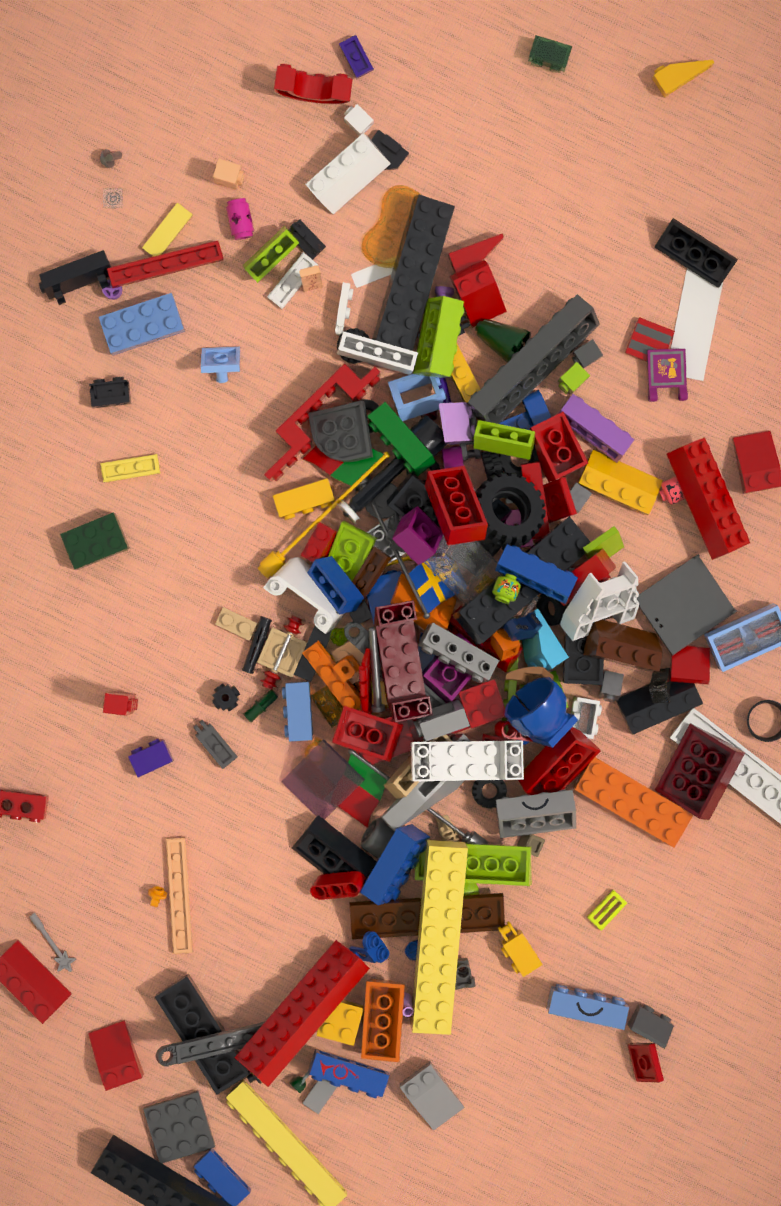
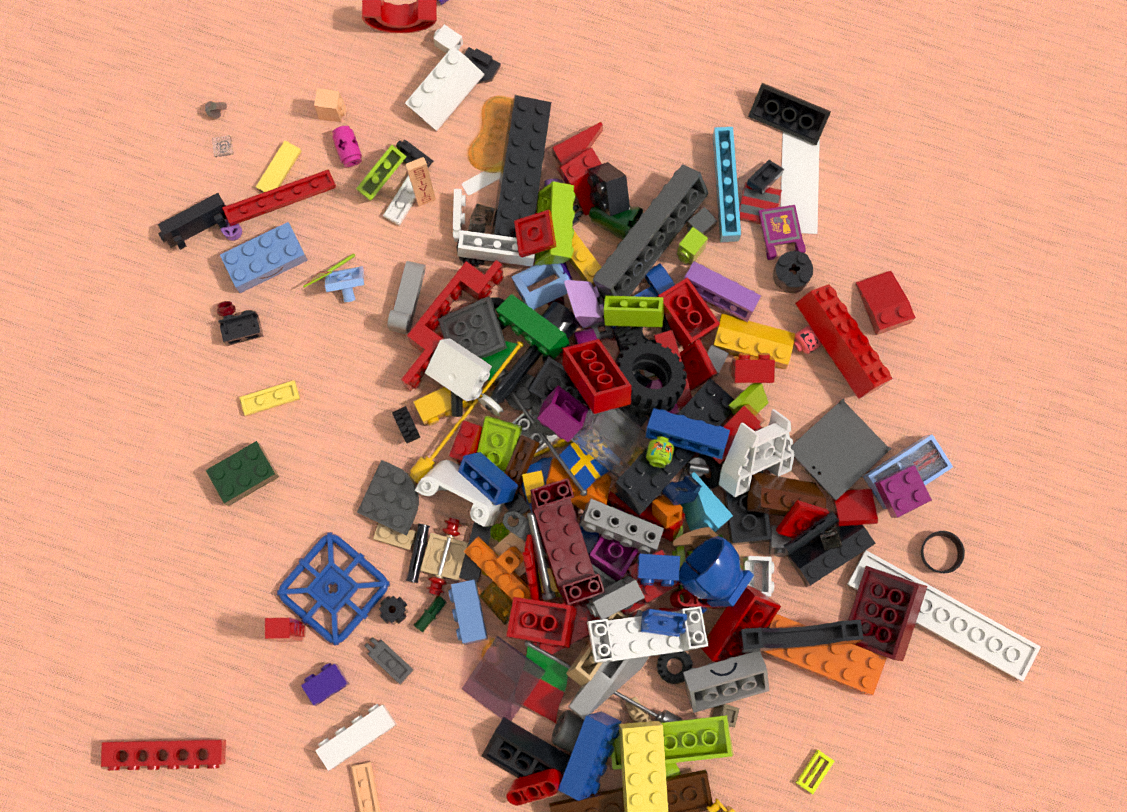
camera: 15 degrees left, 10 degrees down
(97, 371) = (225, 308): none -> dark red plate
(157, 664) = (335, 601): none -> blue plate
(173, 813) = (355, 737): none -> white brick
(198, 351) = (321, 274): none -> lime piece
(238, 588) = (391, 498): none -> dark grey plate
(262, 517) = (406, 425): none -> black tyre
(280, 387) = (402, 316): none -> light grey beam
(322, 475) = (459, 372): none -> white piece
(366, 315) = (480, 218): none -> clear smoke leg
(379, 597) = (532, 481): none -> yellow brick
(417, 347) = (535, 233): none -> red tile
(483, 752) = (663, 622): none -> blue hinge
(486, 700) = (658, 569): none -> blue brick
(498, 309) = (608, 189): none -> black brick
(542, 603) = (698, 466): none -> flat silver plate
(612, 517) = (753, 368): none -> red slope
(613, 783) = (800, 637): none -> black arch
(619, 318) = (726, 184): none -> medium azure brick
(635, 672) = (800, 518): none -> red tile
(649, 681) = (813, 531): none -> black pin
(660, 315) = (765, 177): none -> black plate
(679, 425) = (793, 261): none -> black brick
(737, 658) = (903, 491): none -> magenta brick

